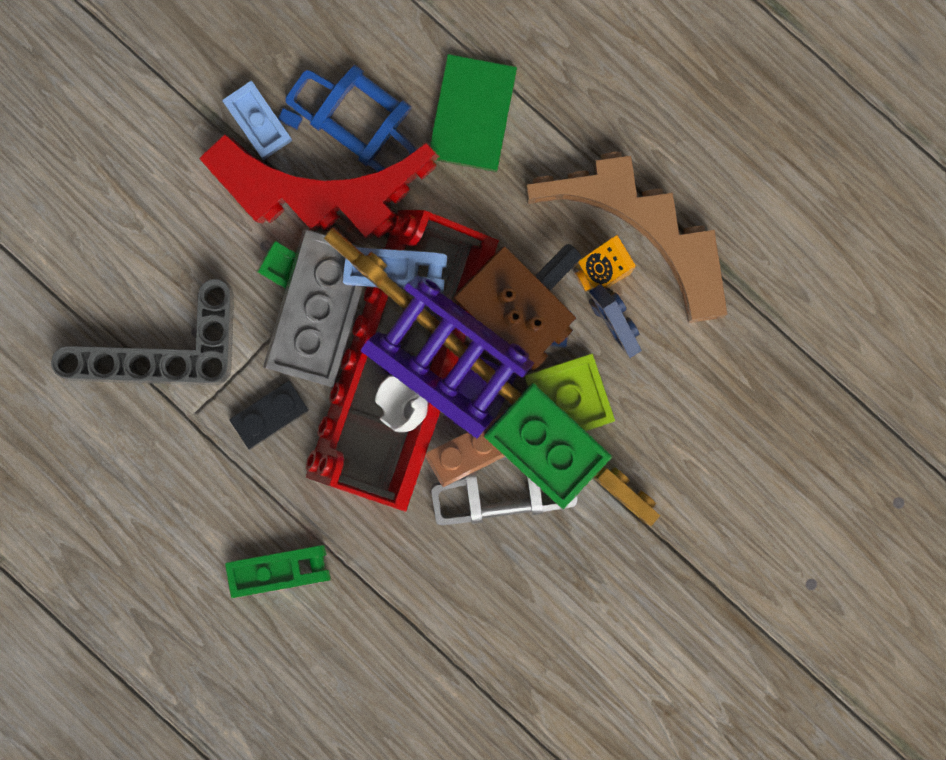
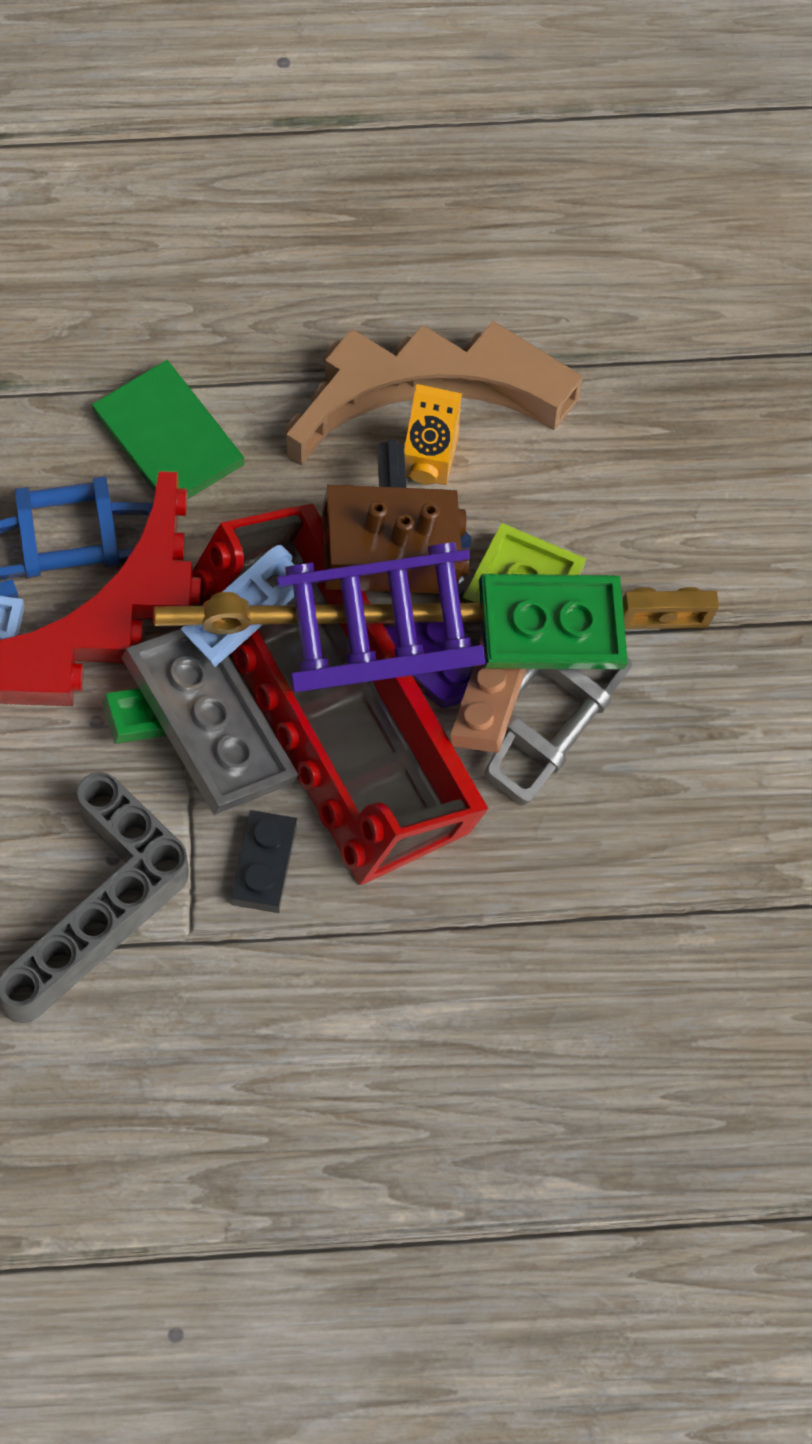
camera: 45 degrees left, 20 degrees down
(276, 571) = (425, 990): green plate -> none
(401, 405) = (378, 716): white hair -> none
(610, 308) = (490, 469): dark blue plate -> none

